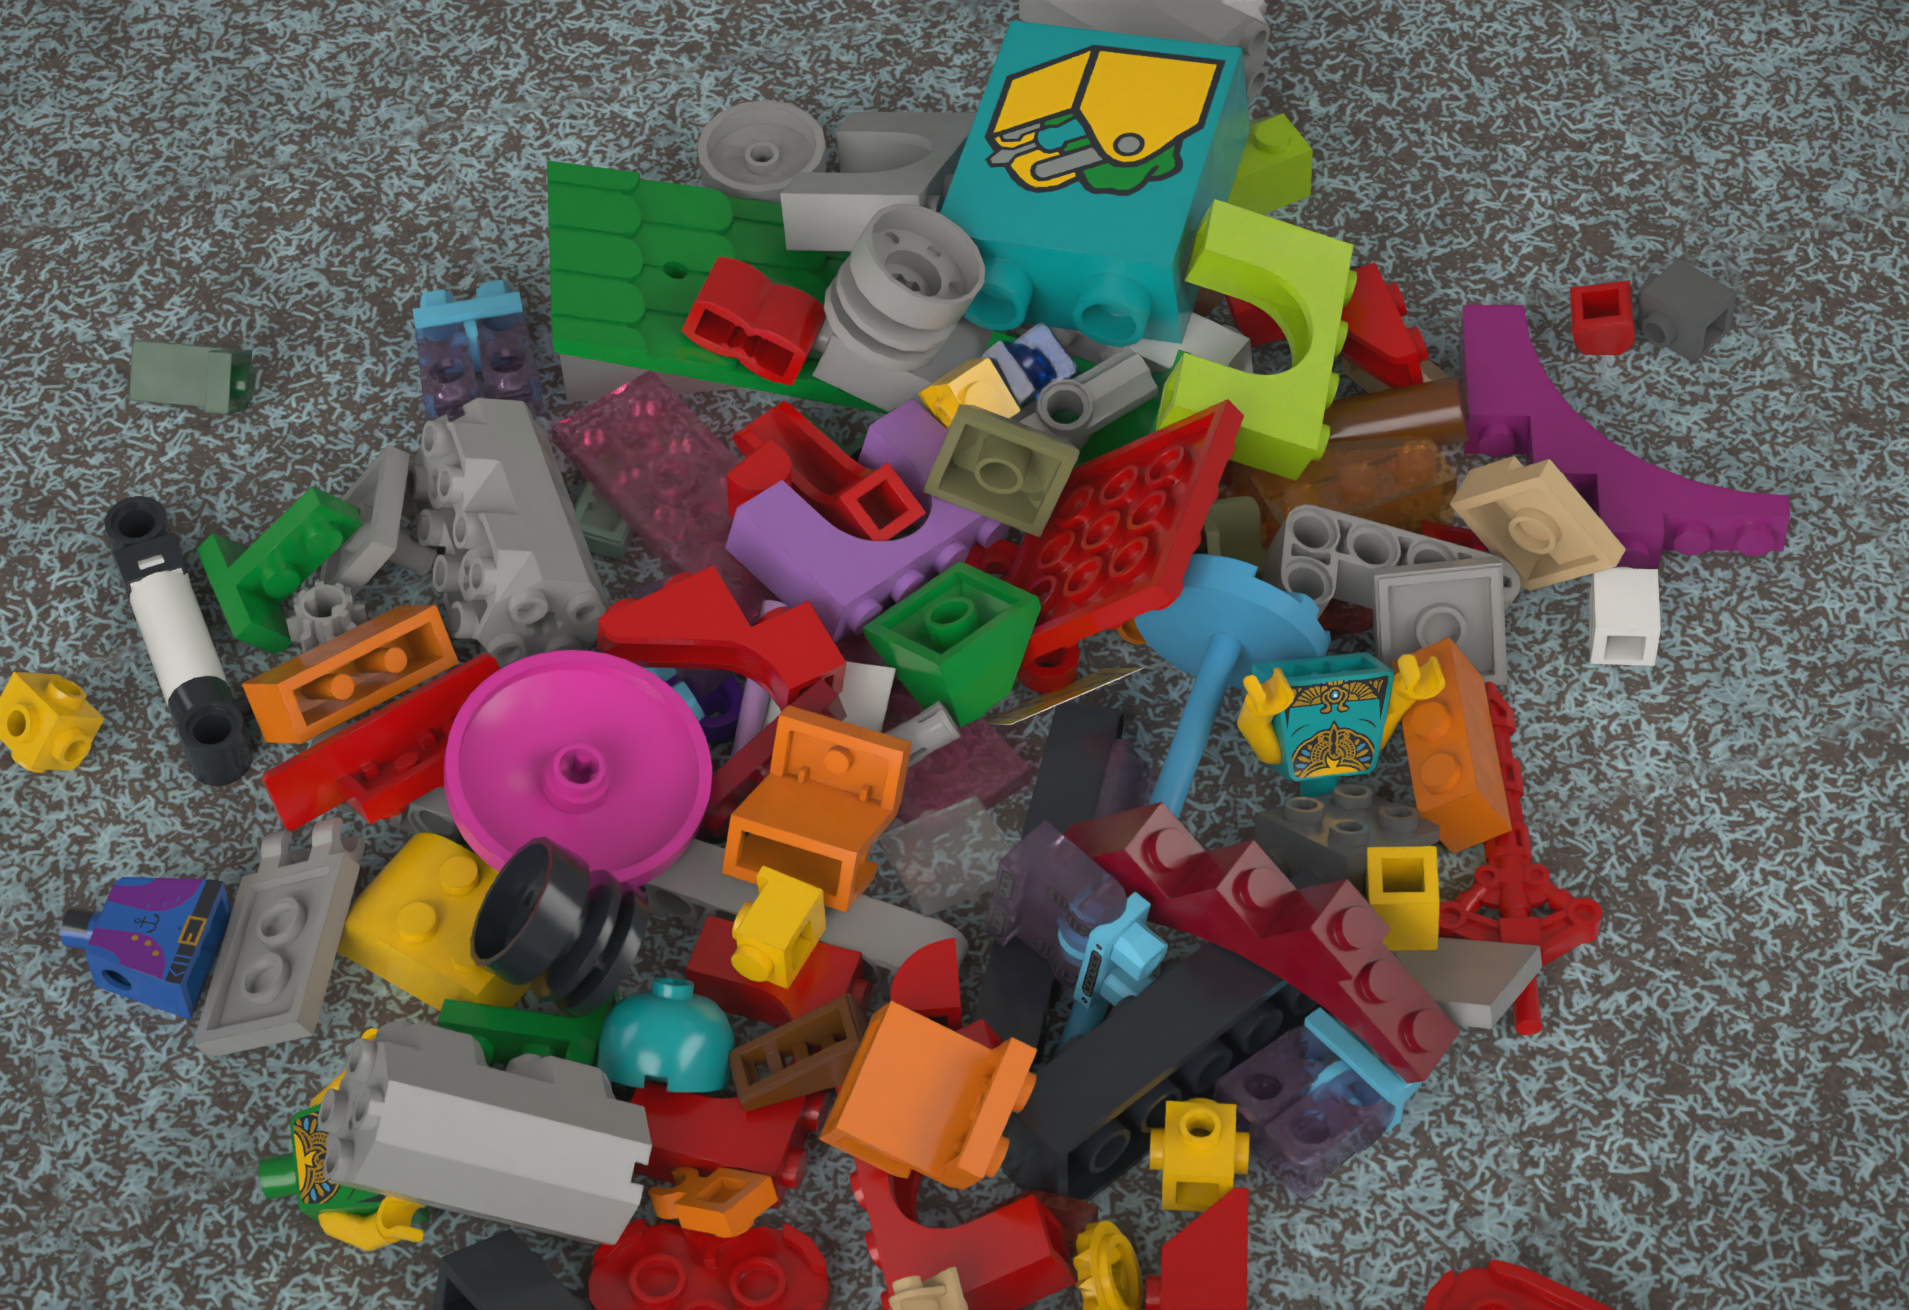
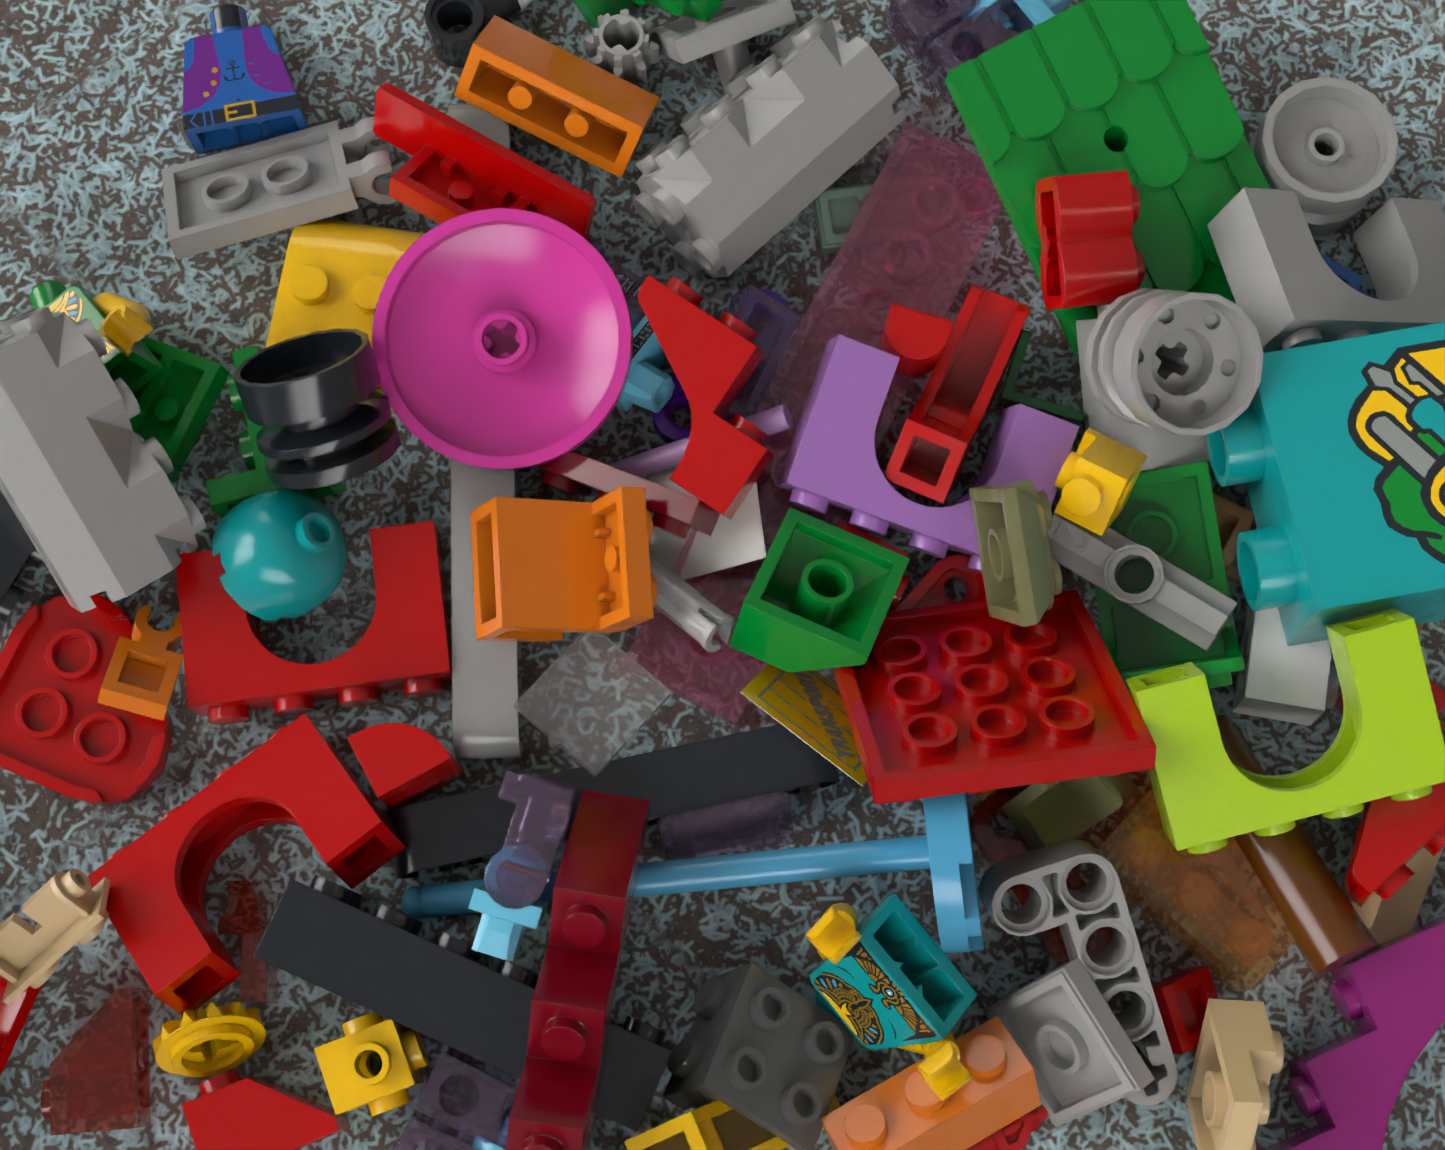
camera: 60 degrees right, 25 degrees up
(778, 928) = (418, 590): yellow brick -> none
(834, 1027) = (331, 709): reddish brown slope -> none
(929, 1099) = (258, 818): orange piece -> none
(1031, 363) = (1165, 516): clear blue bracket -> none

